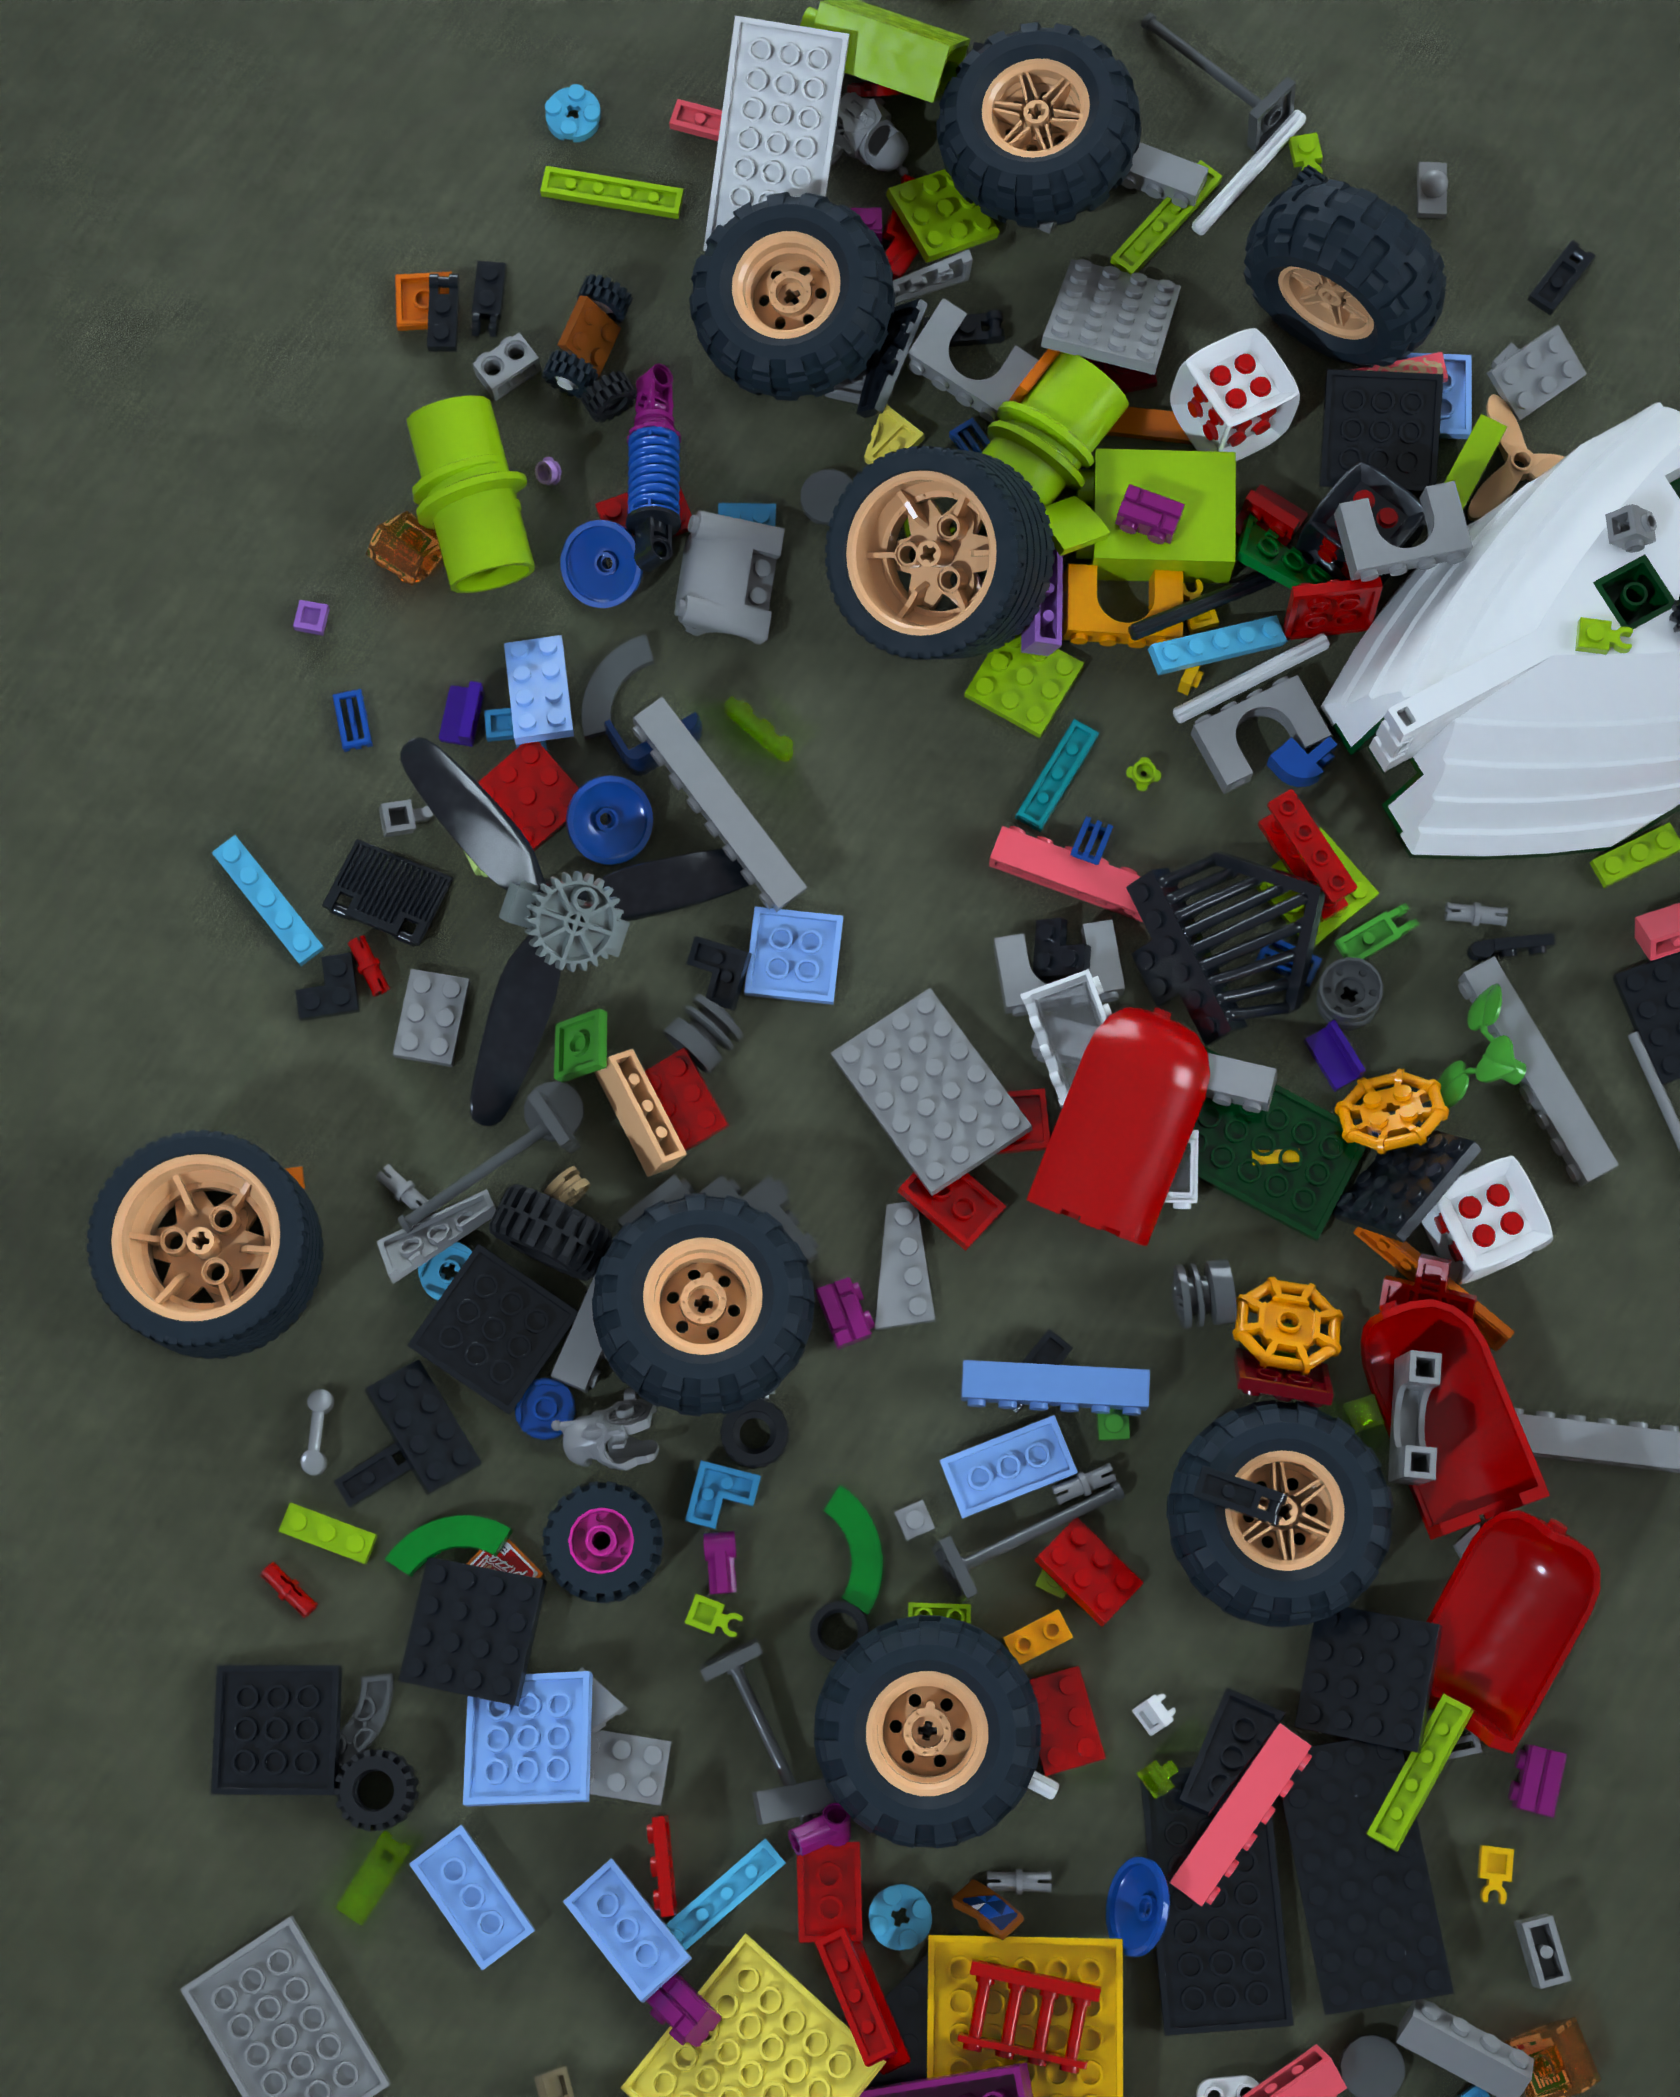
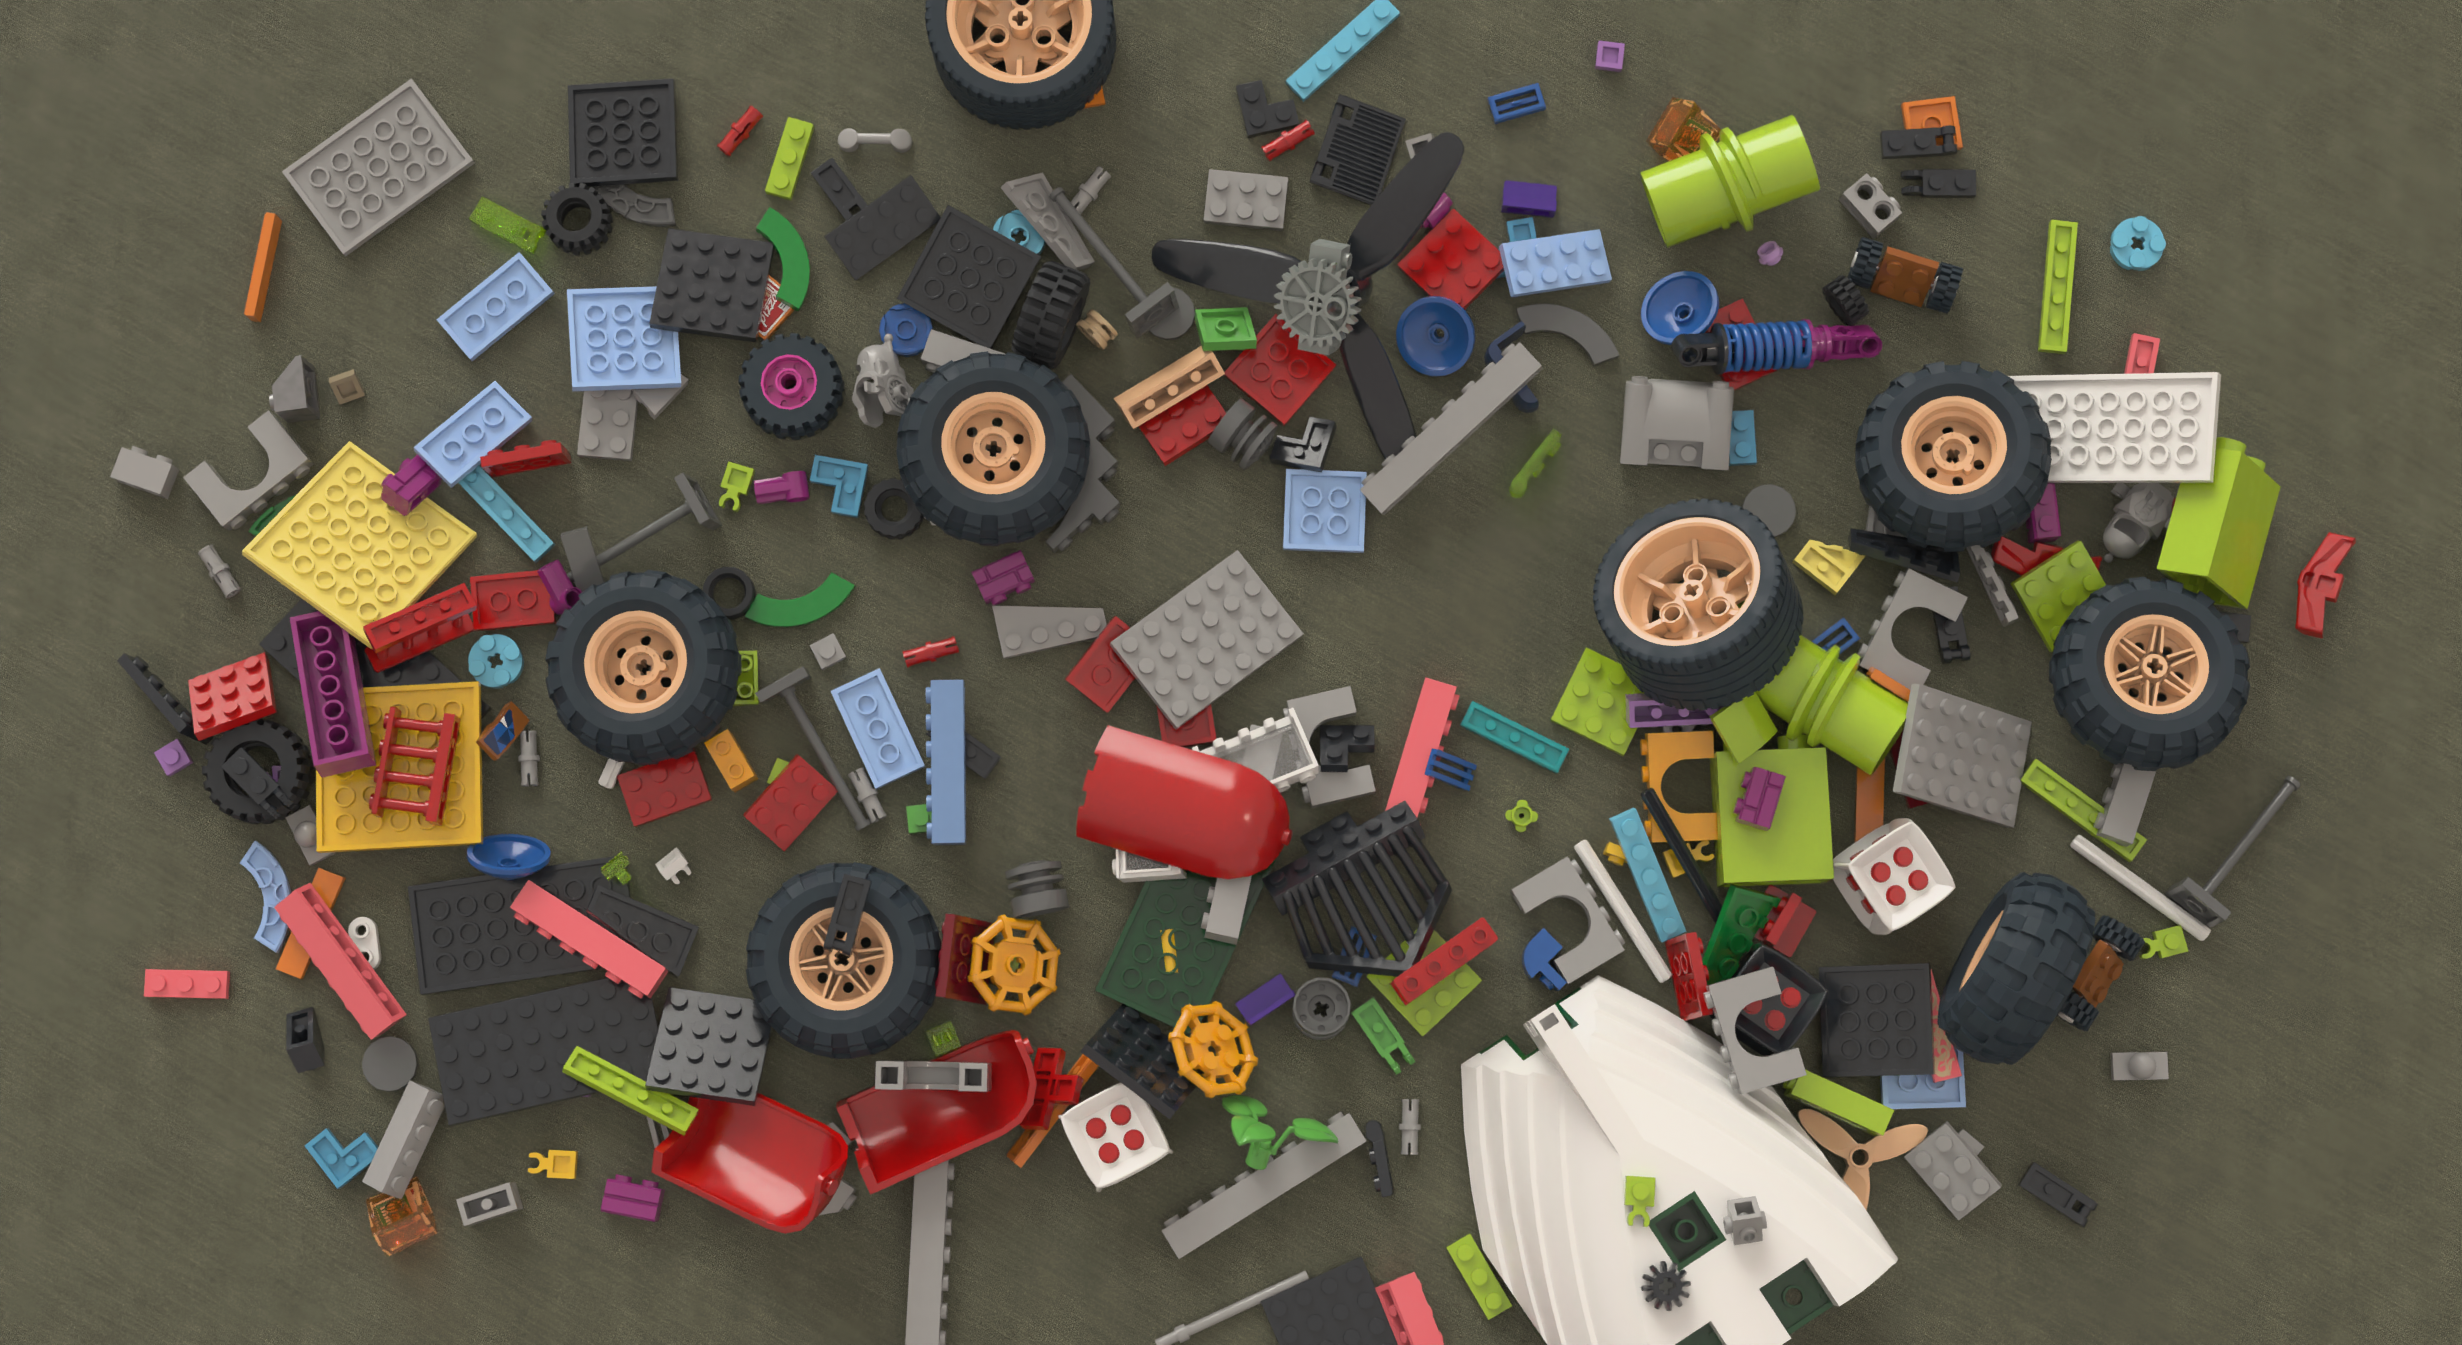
camera: 85 degrees right, 5 degrees up
(634, 991) = (1278, 372): none -> red plate
(922, 1401) = (930, 651): none -> red pin

